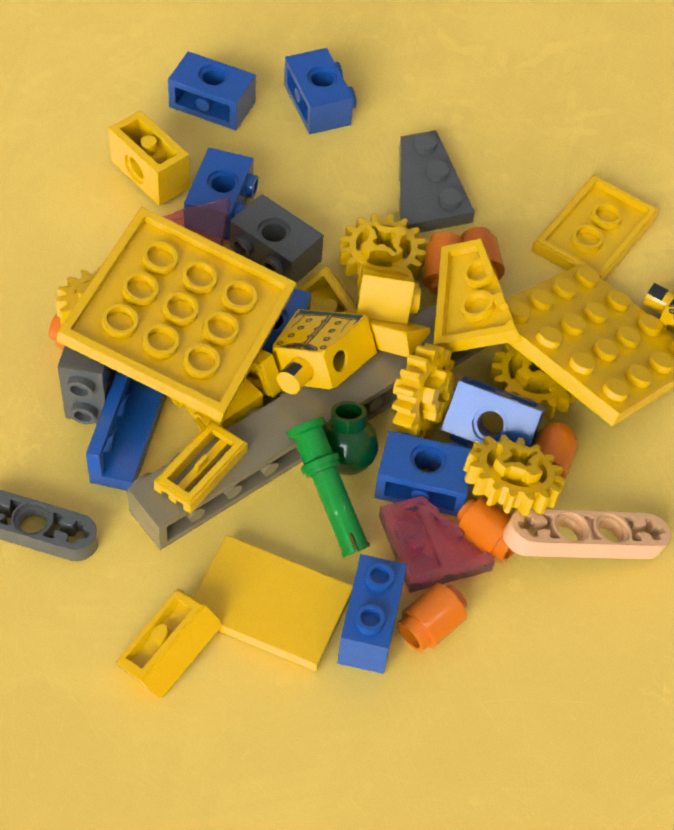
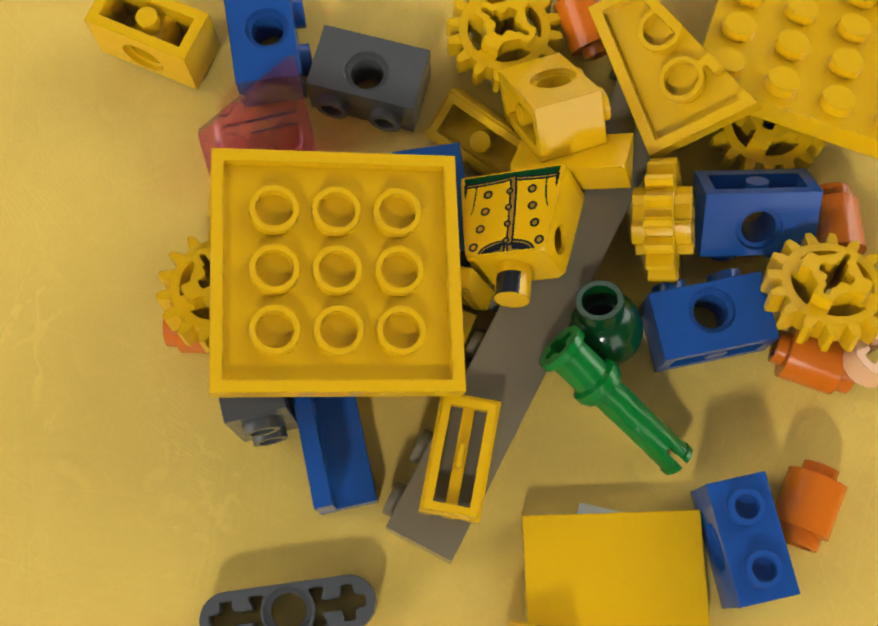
camera: 20 degrees left, 20 degrees up
(430, 545) = (755, 413): clear pink wing -> none

